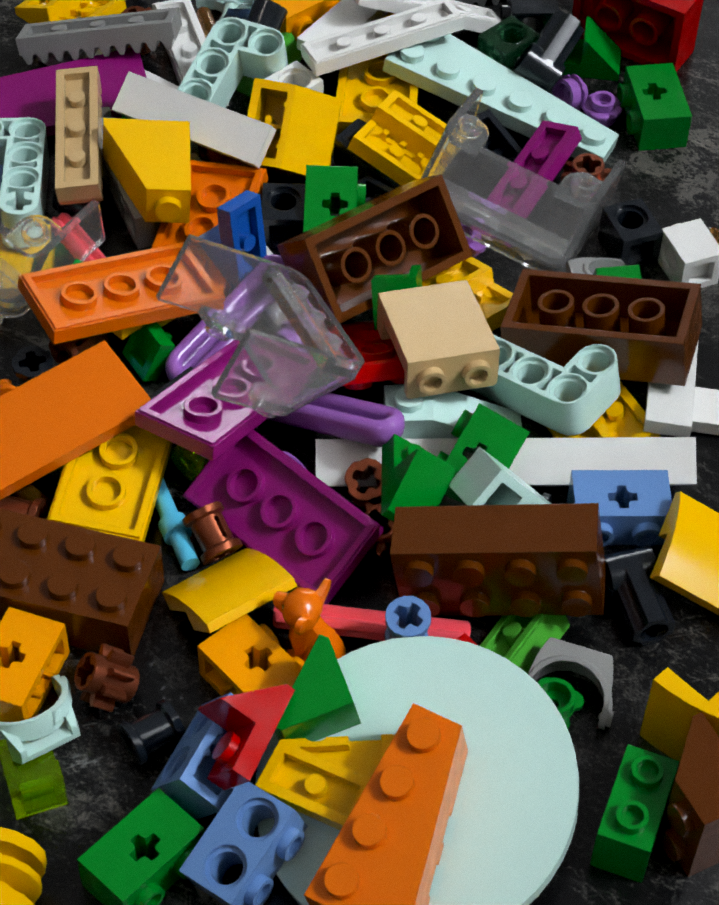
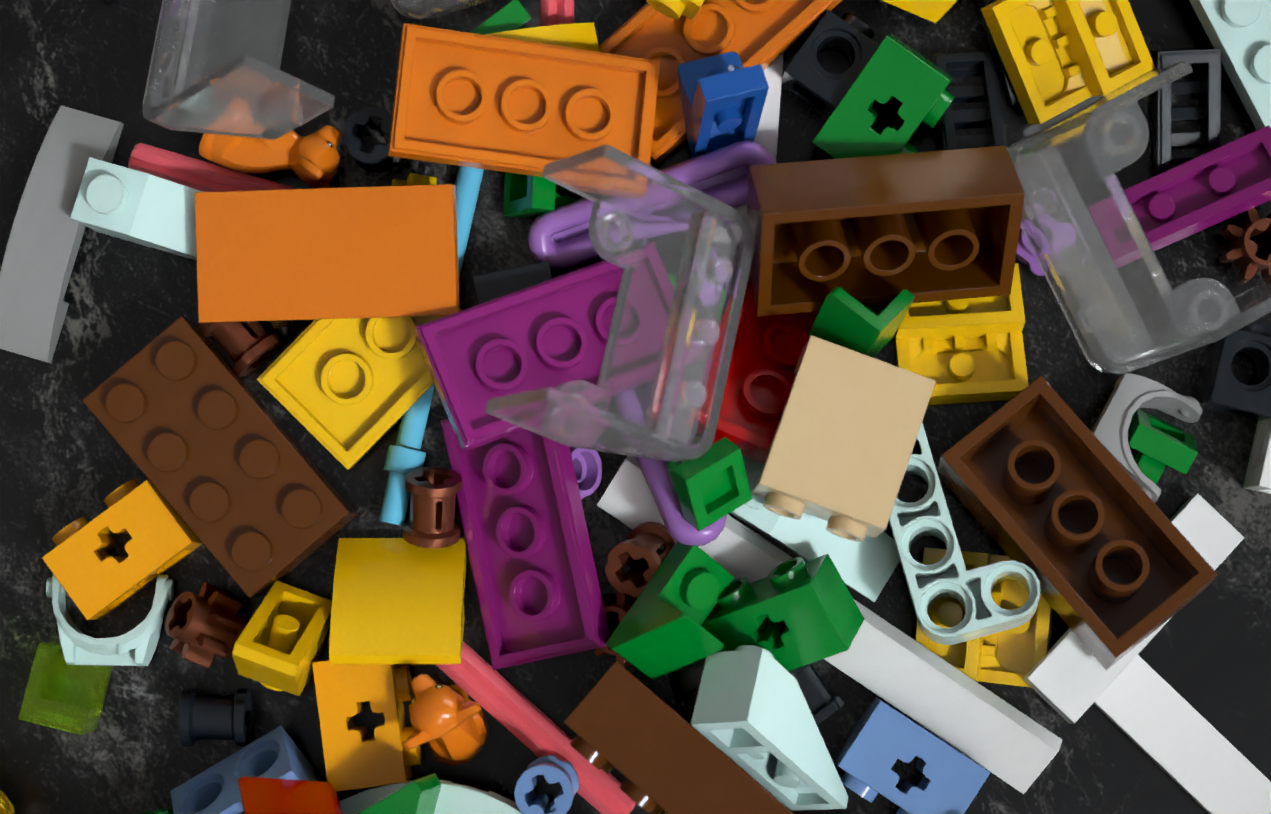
camera: 40 degrees right, 35 degrees up
(170, 649) = (283, 639): none -> yellow slope
(377, 388) = (711, 484): none -> green tile

